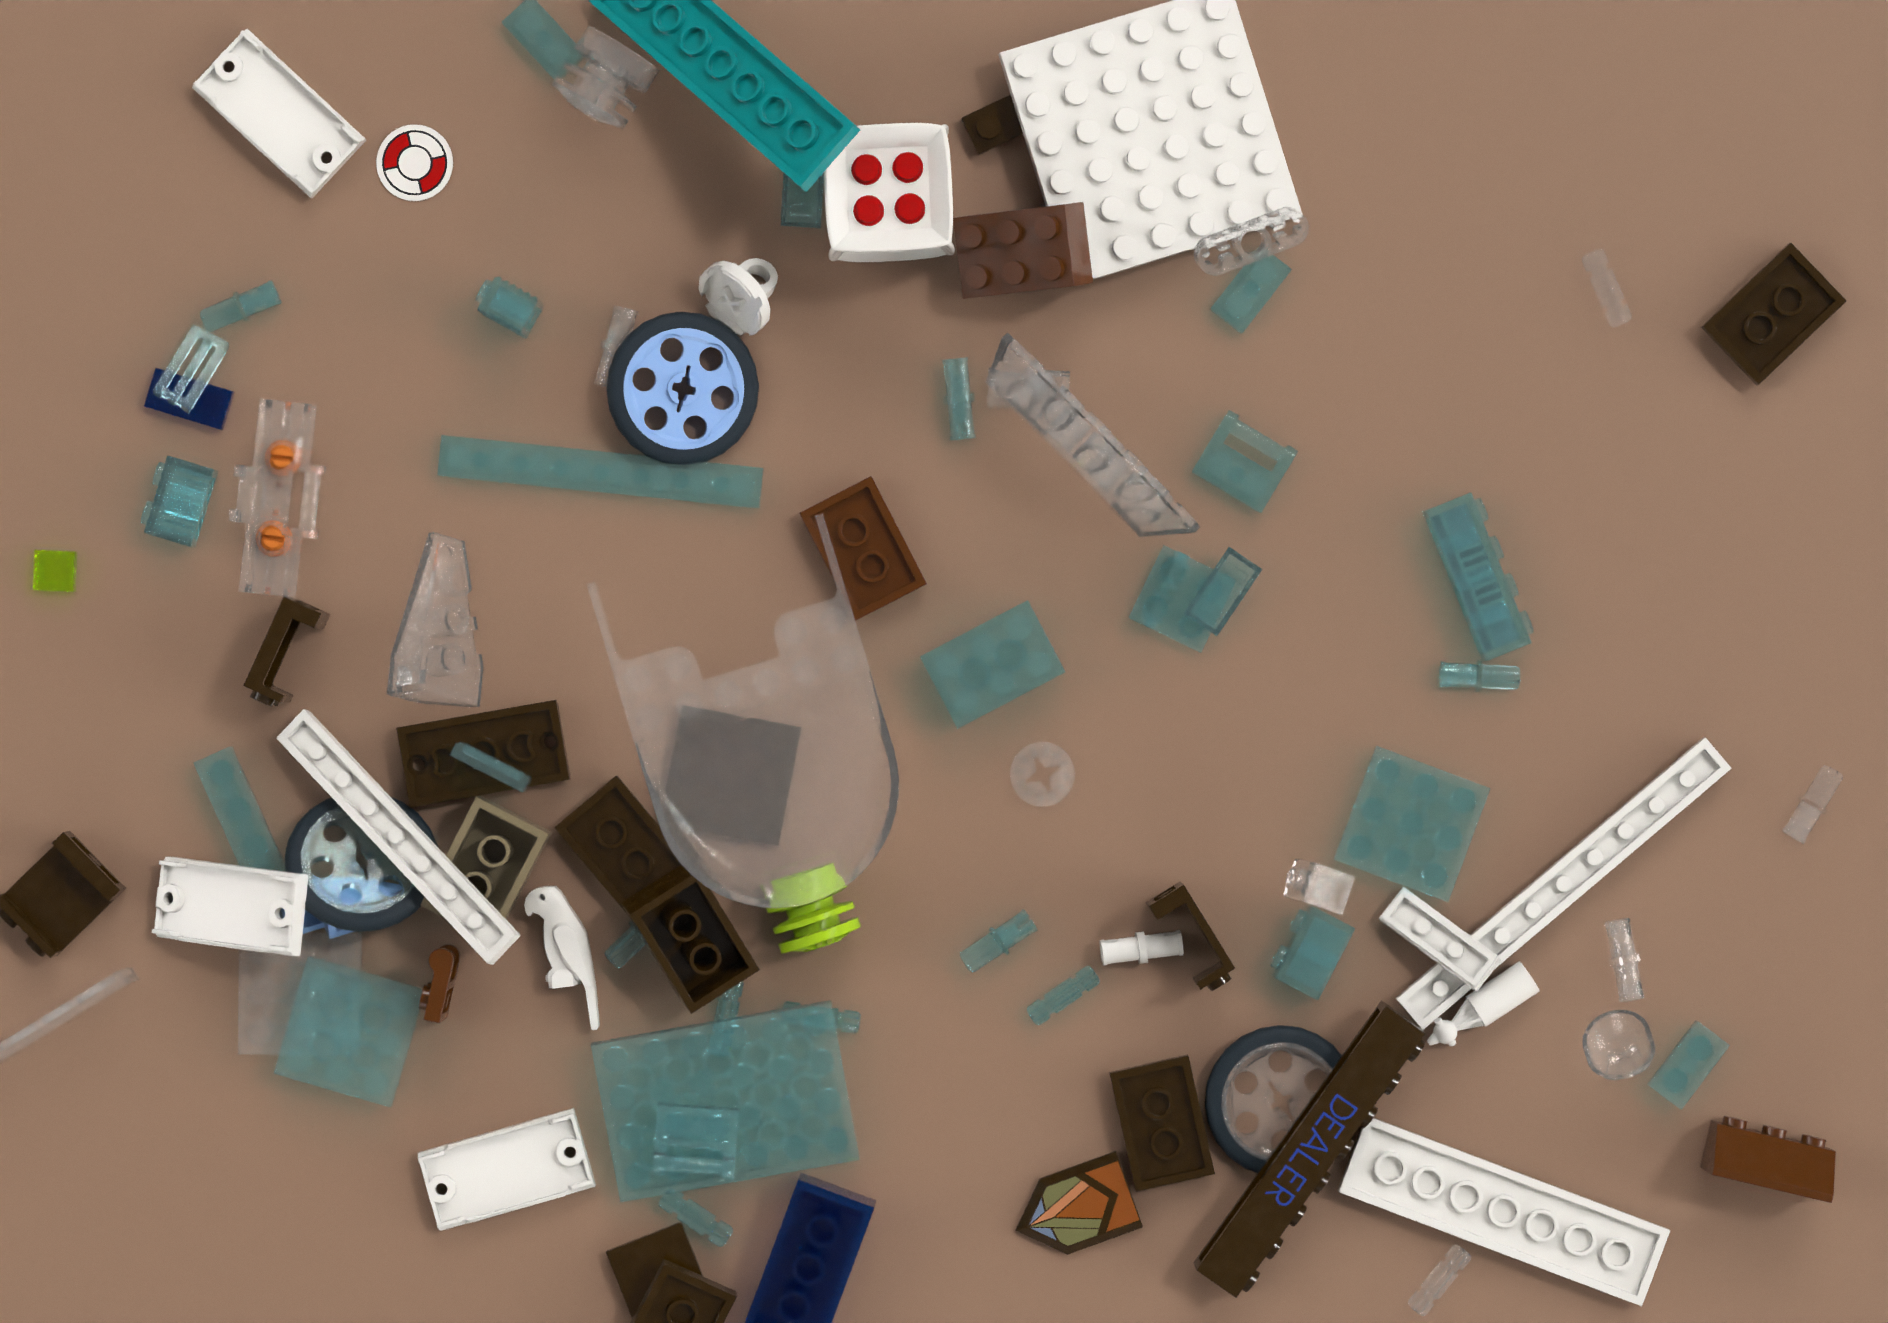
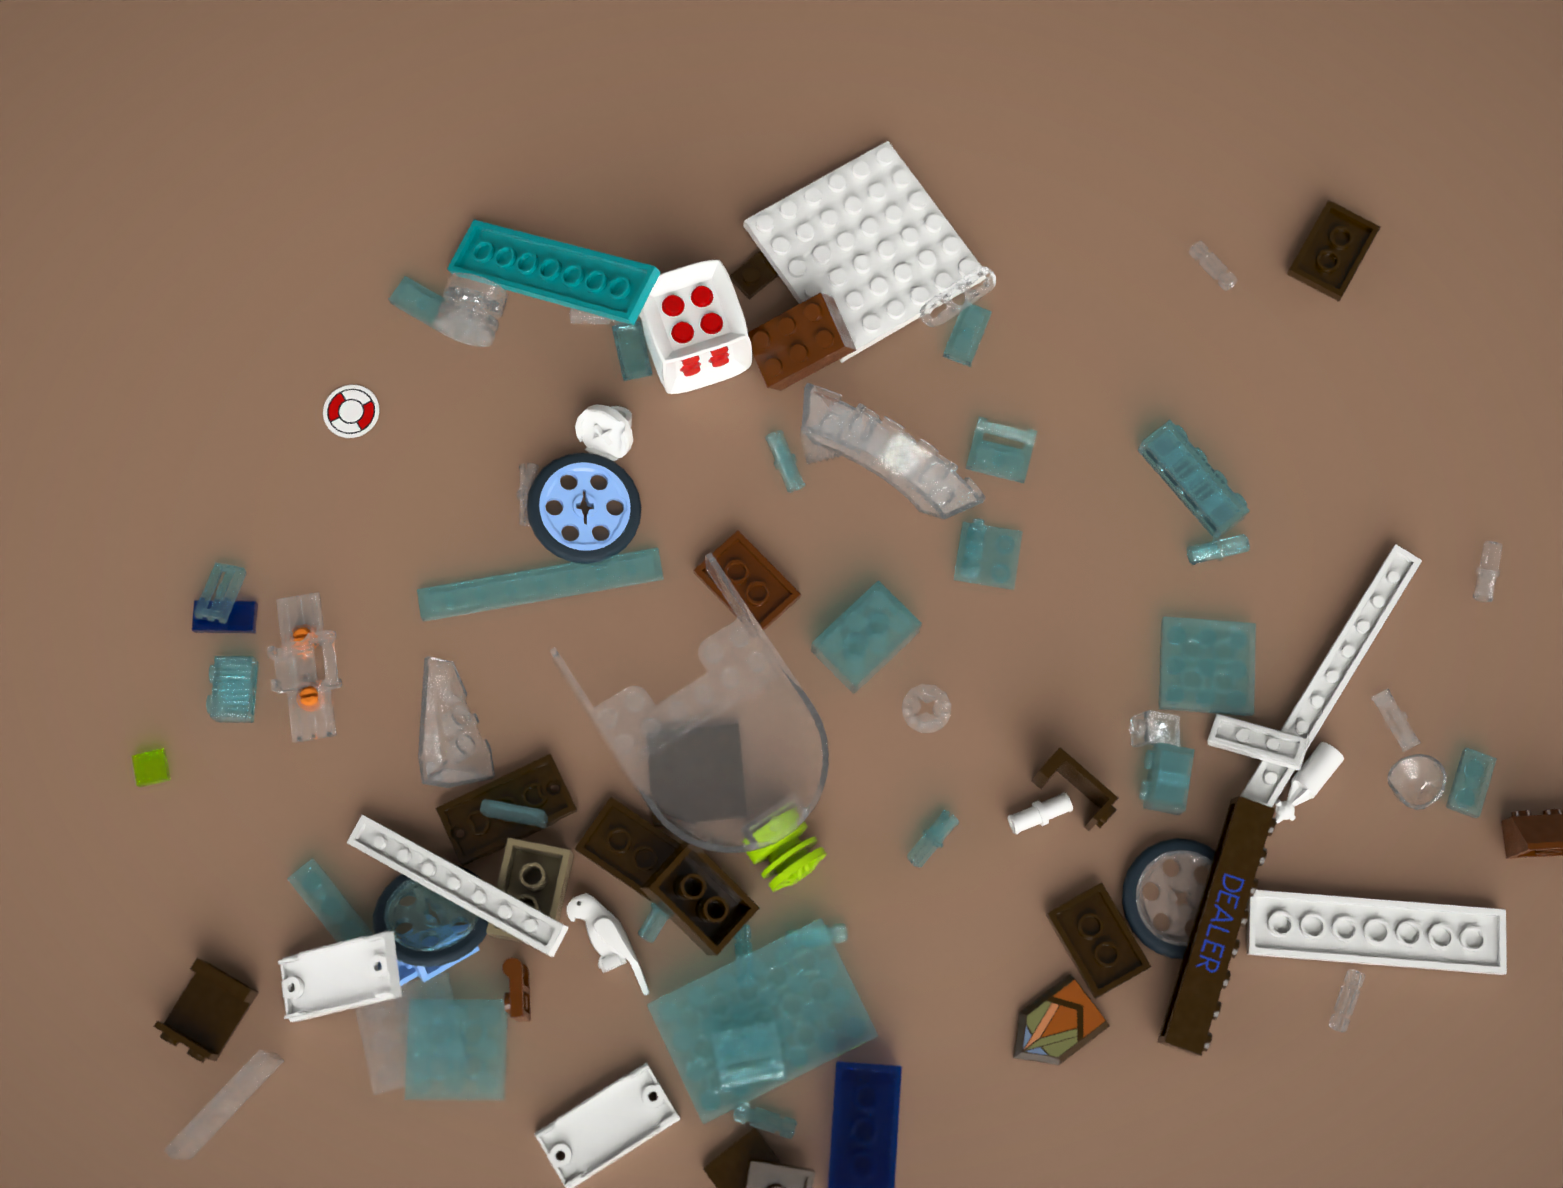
camera: 15 degrees left, 15 degrees down
(240, 306) = (247, 541): clear light blue axle -> none
(275, 646) = (329, 769): dark brown panel -> none
(278, 113) = (244, 402): white piece -> none
(509, 305) = (442, 481): clear light blue brick -> none
(1063, 995) = (993, 866): clear light blue axle -> none
(1223, 591) = (1016, 539): clear light blue tile -> none

